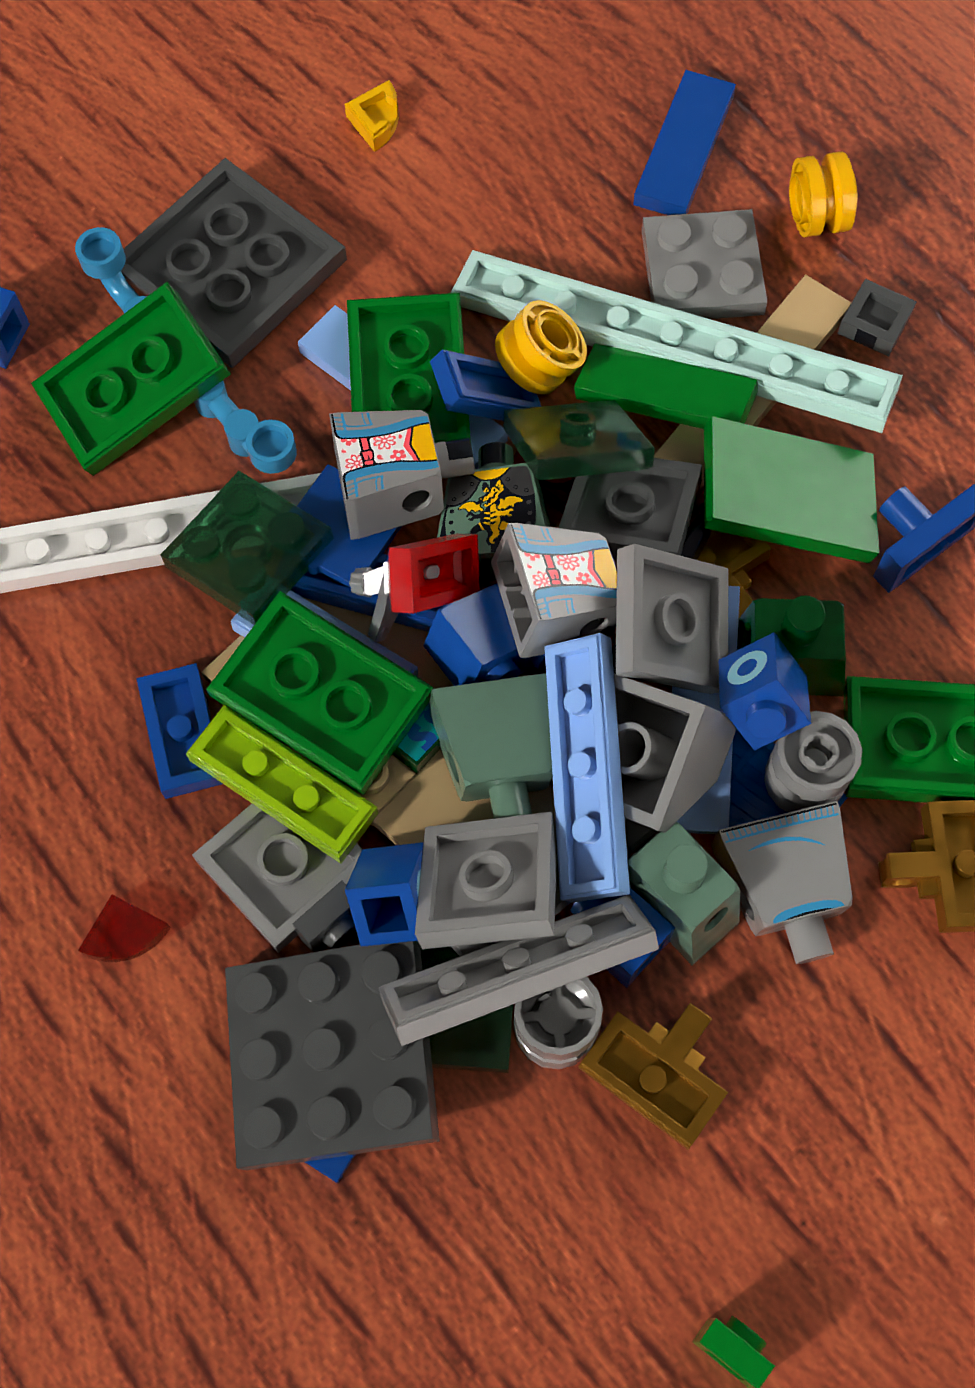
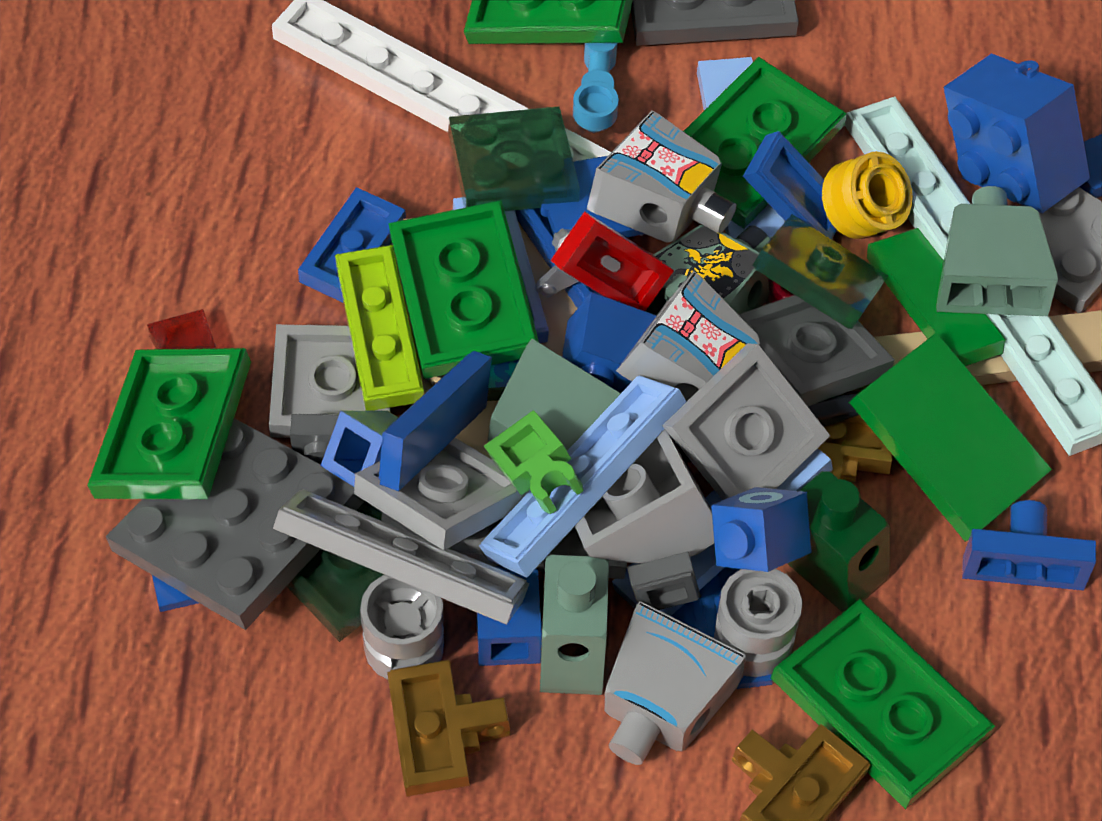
camera: 40 degrees right, 10 degrees down
(193, 1022) = (170, 424): none -> green tile
(428, 831) = (434, 420): none -> blue tile
(540, 789) = (533, 460): none -> bright green plate
(610, 203) = (1017, 131): none -> blue brick
(694, 319) = (996, 259): none -> sand green torso
(722, 797) = (665, 581): none -> dark grey tile

